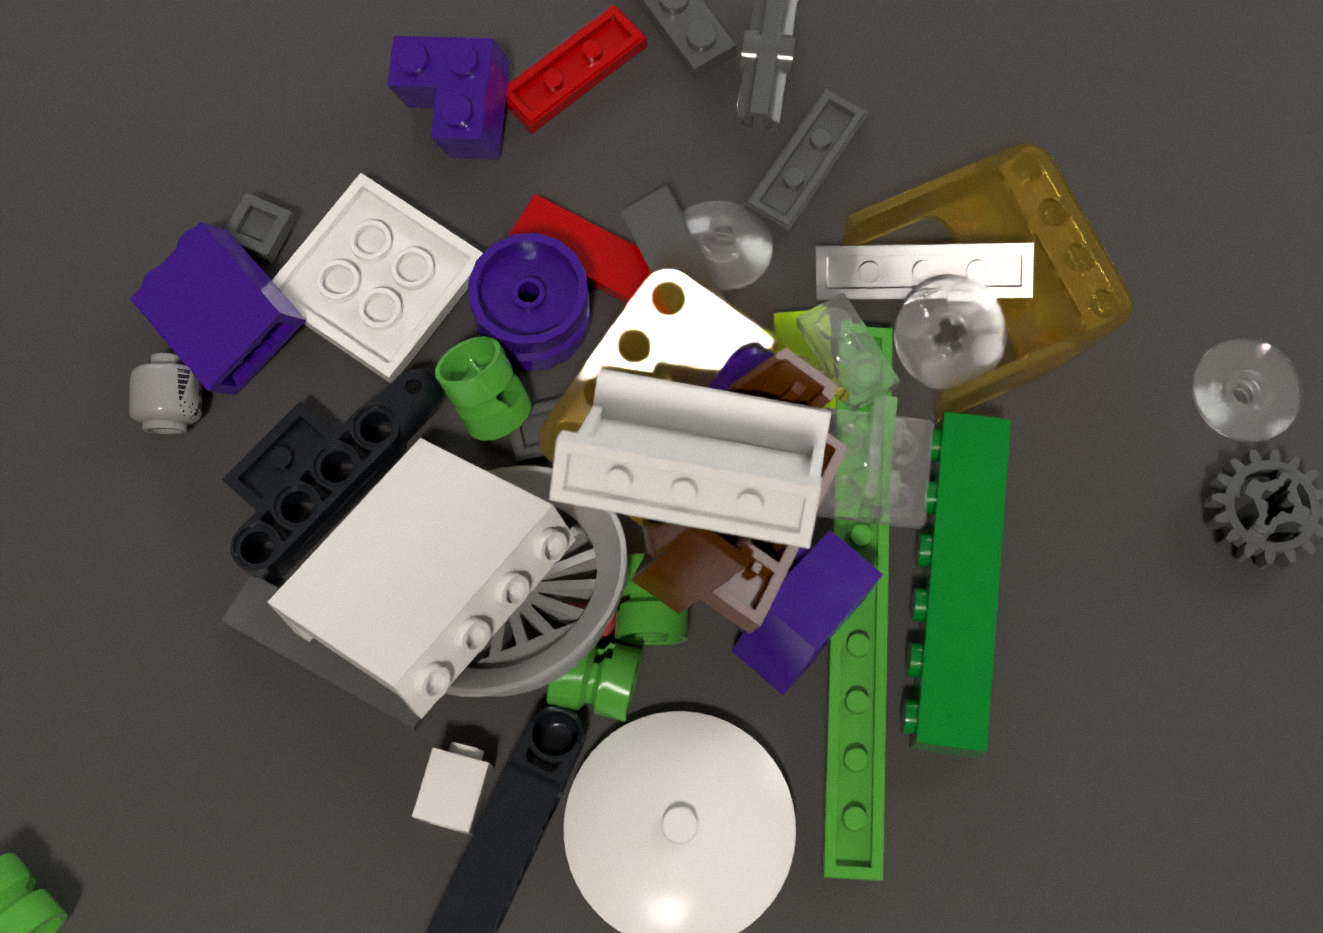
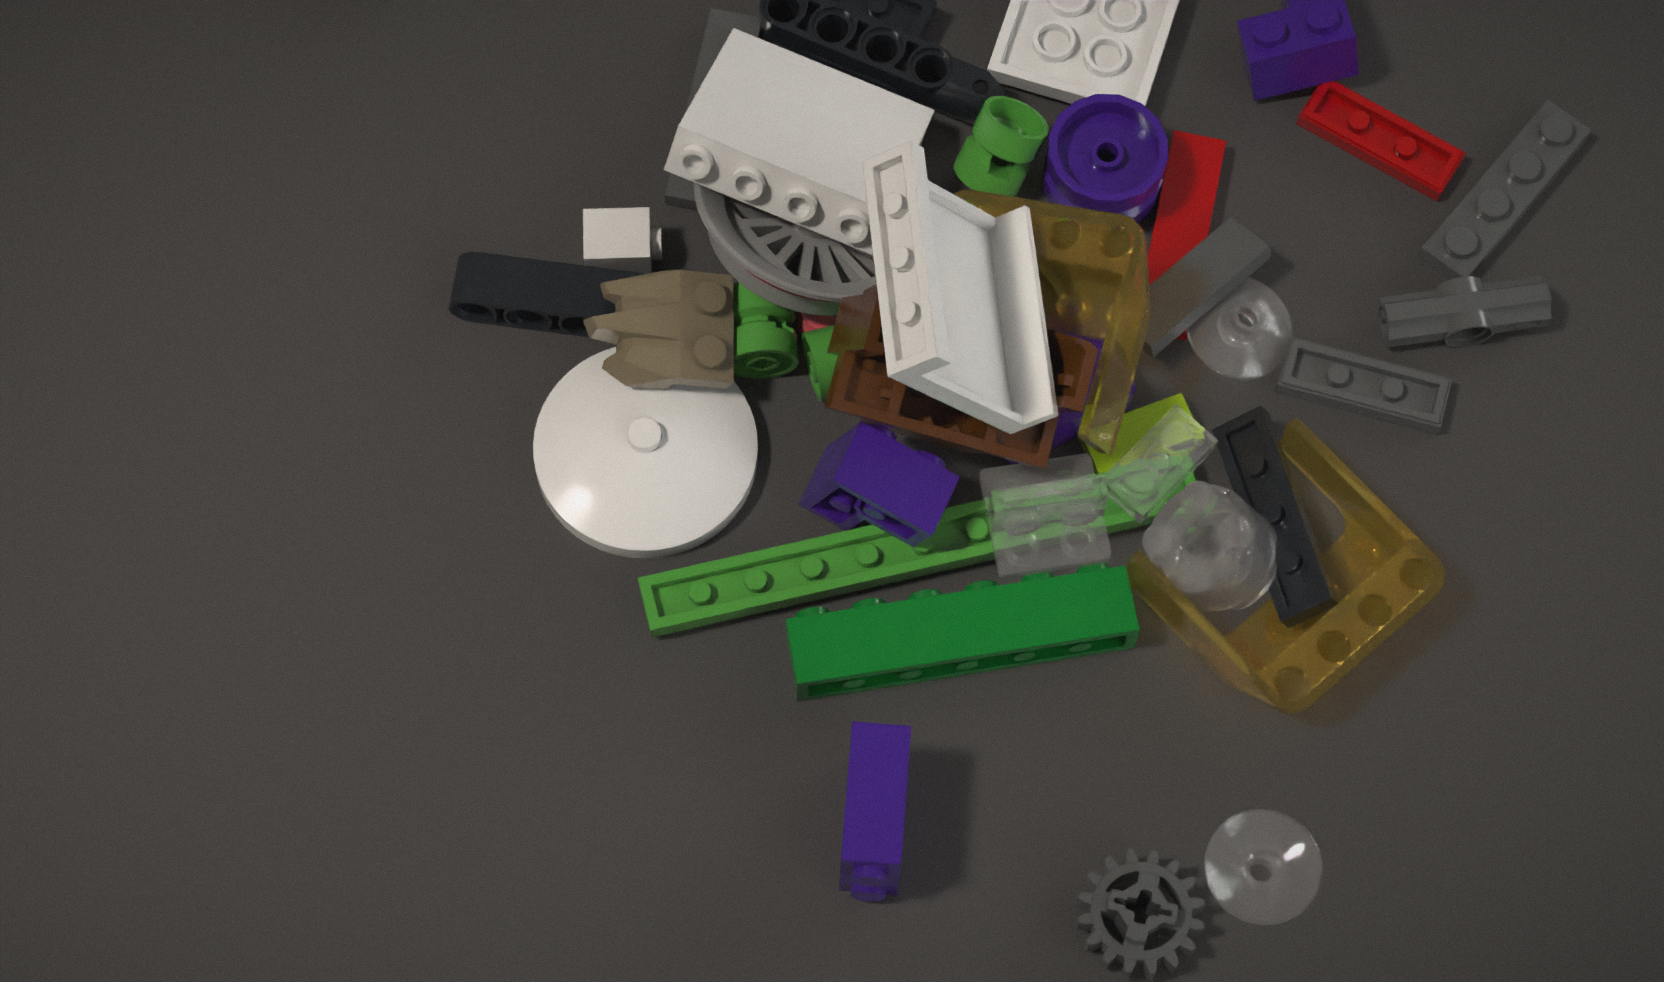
camera: 70 degrees right, 5 degrees down
(579, 767) = (669, 329): none -> dark tan plate
(1136, 715) = (874, 810): none -> dark purple brick

